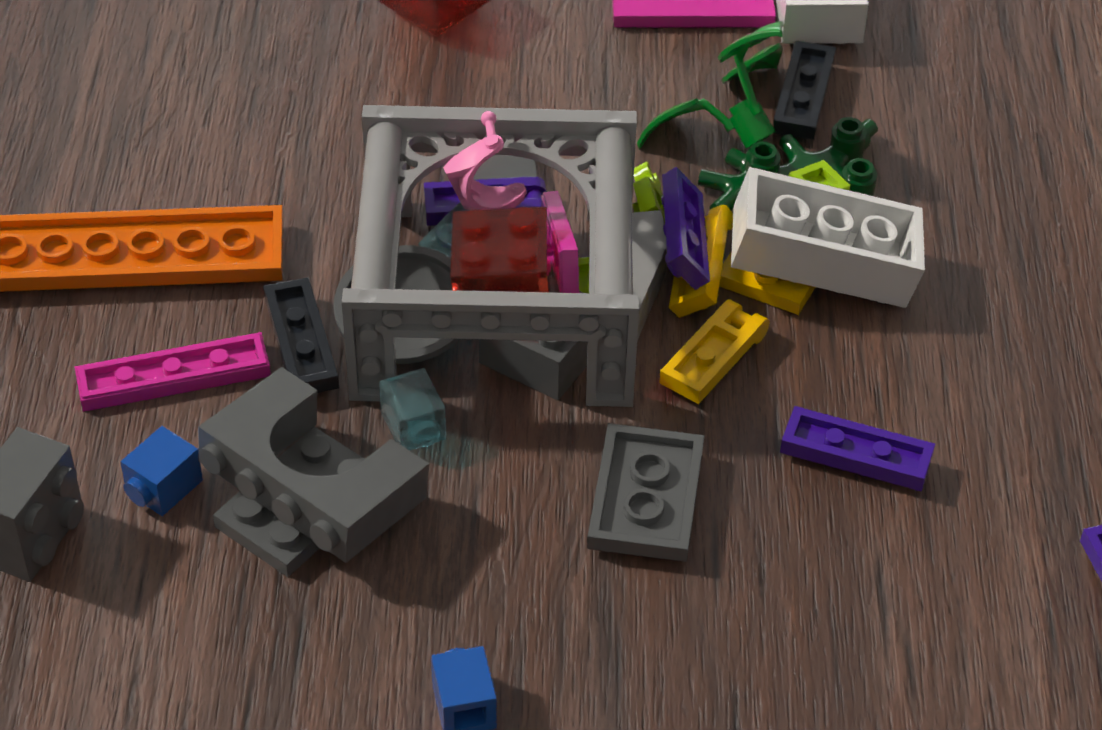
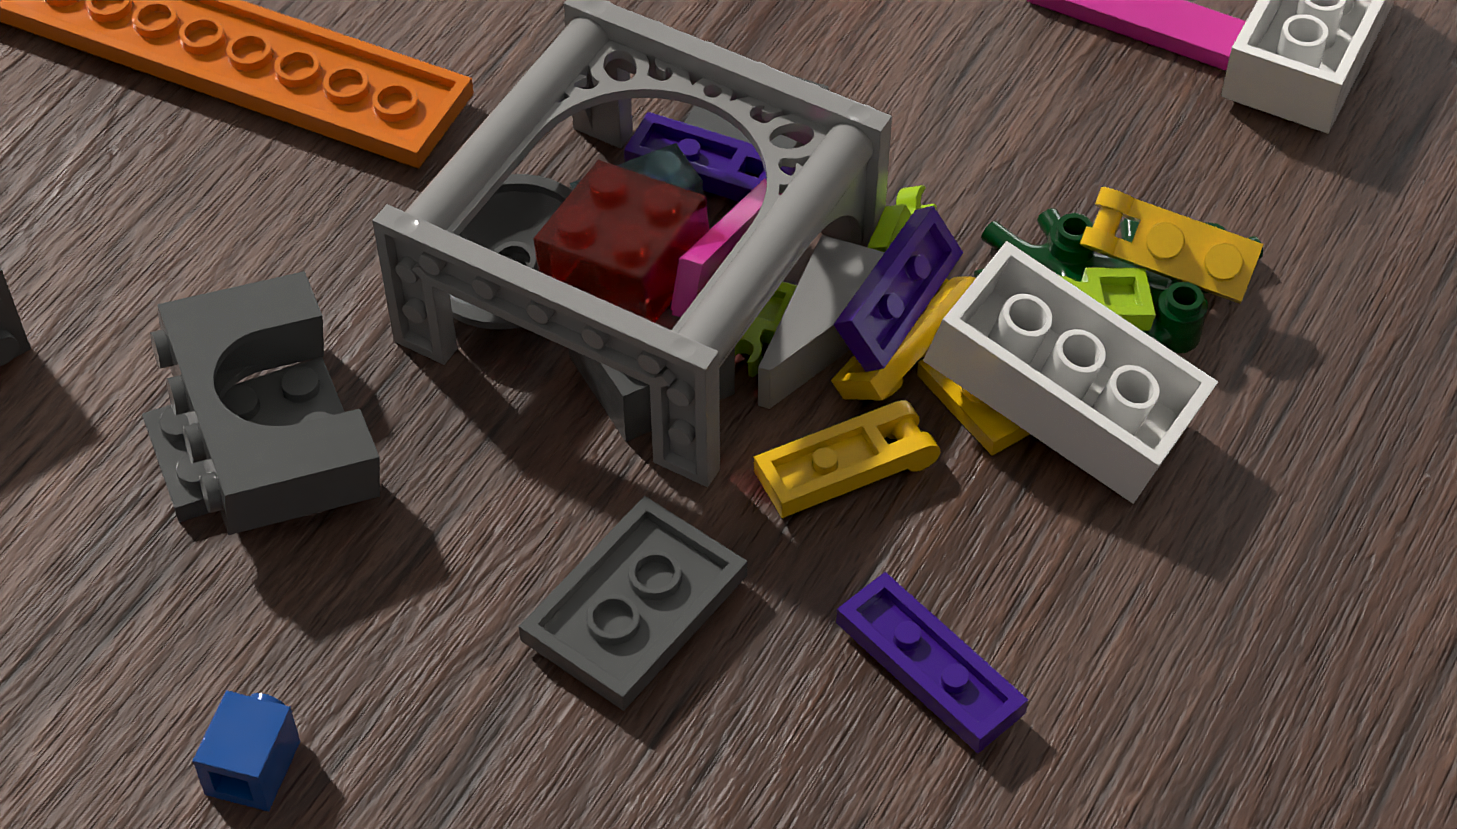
camera: 30 degrees right, 5 degrees up
(161, 471) = (118, 339): blue brick -> none
(172, 371) = (229, 228): dark pink tile -> none
(301, 333) = (359, 281): black plate -> none
(413, 409) = (438, 383): clear light blue brick -> none
(465, 164) = (660, 147): bright pink helmet -> none
(748, 116) = (1094, 168): green plant -> none
(804, 90) = (1207, 161): black plate -> none
(834, 138) = (1173, 245): none -> yellow plate

